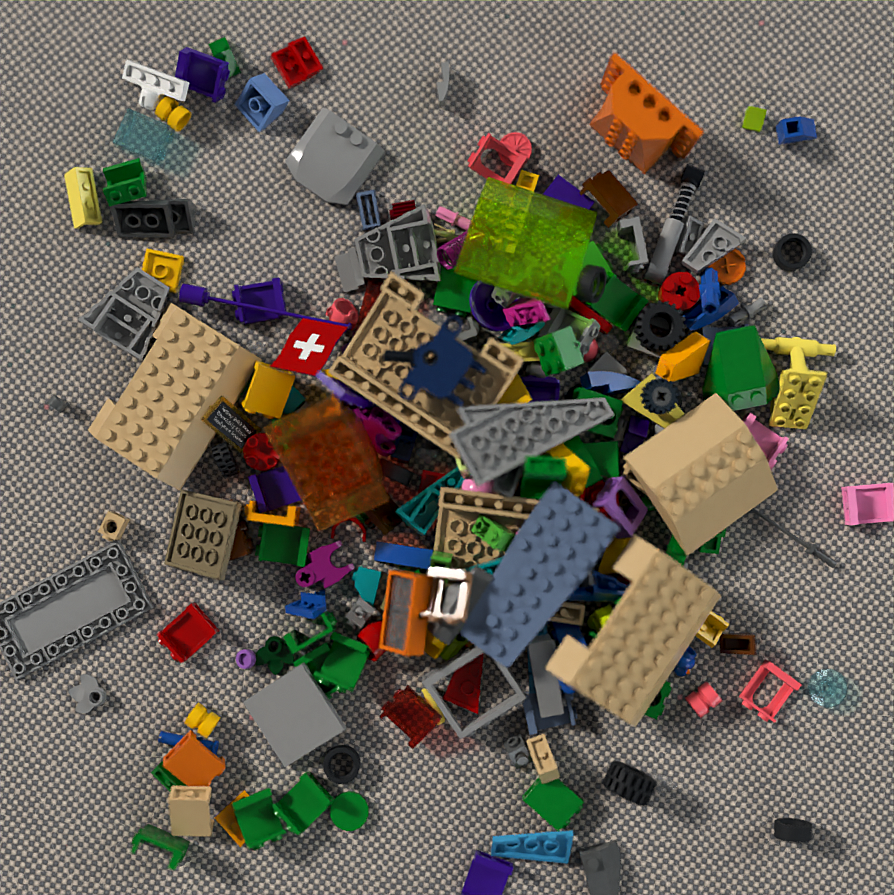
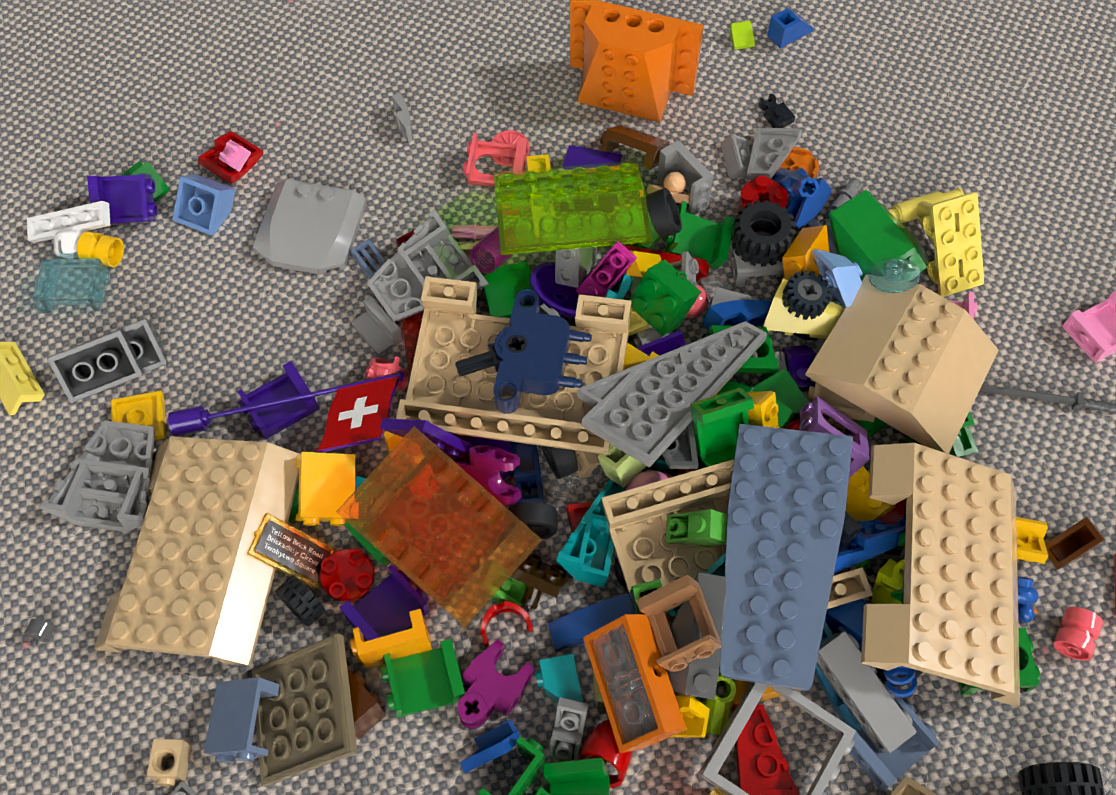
camera: 25 degrees left, 25 degrees down
(125, 182) = (59, 332): green panel -> none
(160, 520) = (235, 717): none -> sand blue panel
(299, 67) = (234, 155): none -> bright pink tile
(561, 317) = (642, 263): none -> yellow slope
(616, 253) = (675, 183): none -> light nougat tile
(672, 228) = (725, 193): piece -> none
(694, 388) = (841, 275): none -> light blue slope
(733, 413) = (894, 275): none -> clear light blue dish
(740, 210) = (776, 114): none -> black plate
(805, 245) = (857, 115): black tyre -> none

